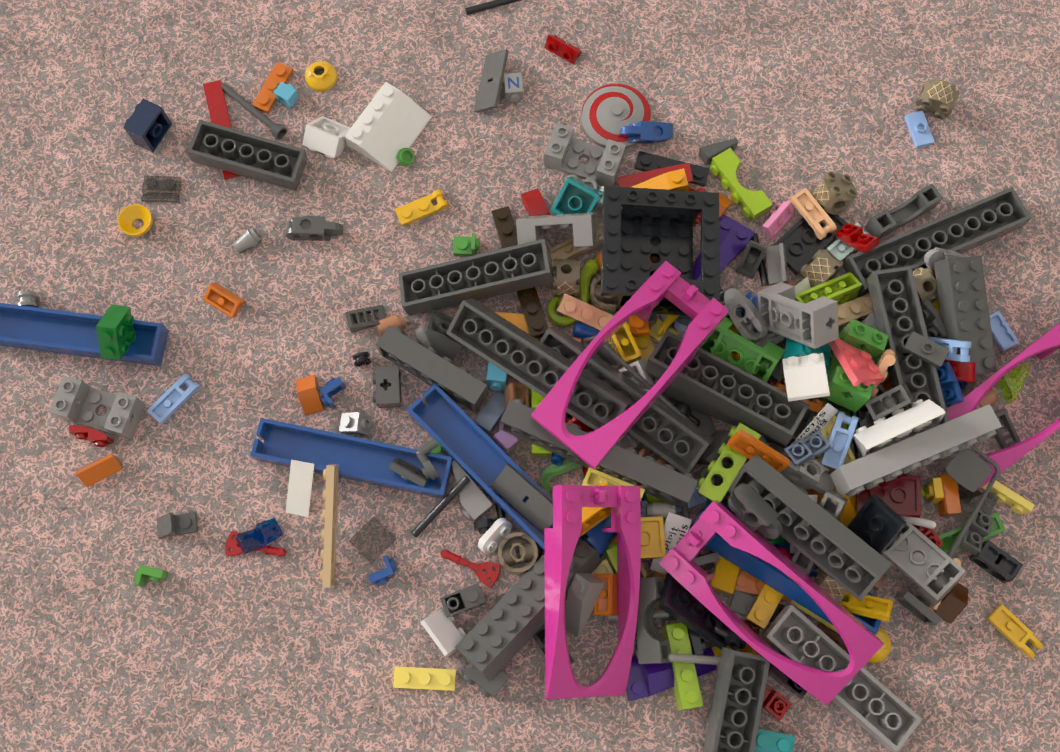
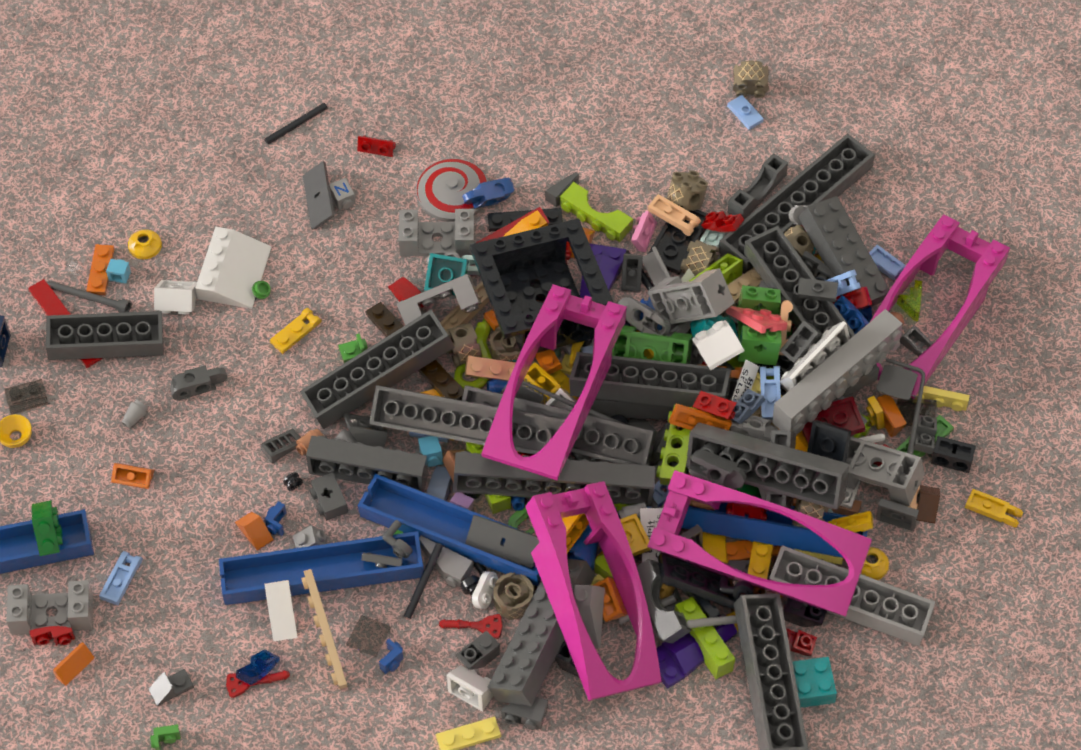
camera: 20 degrees left, 15 degrees down
(779, 442) = (715, 405): none -> red hinge

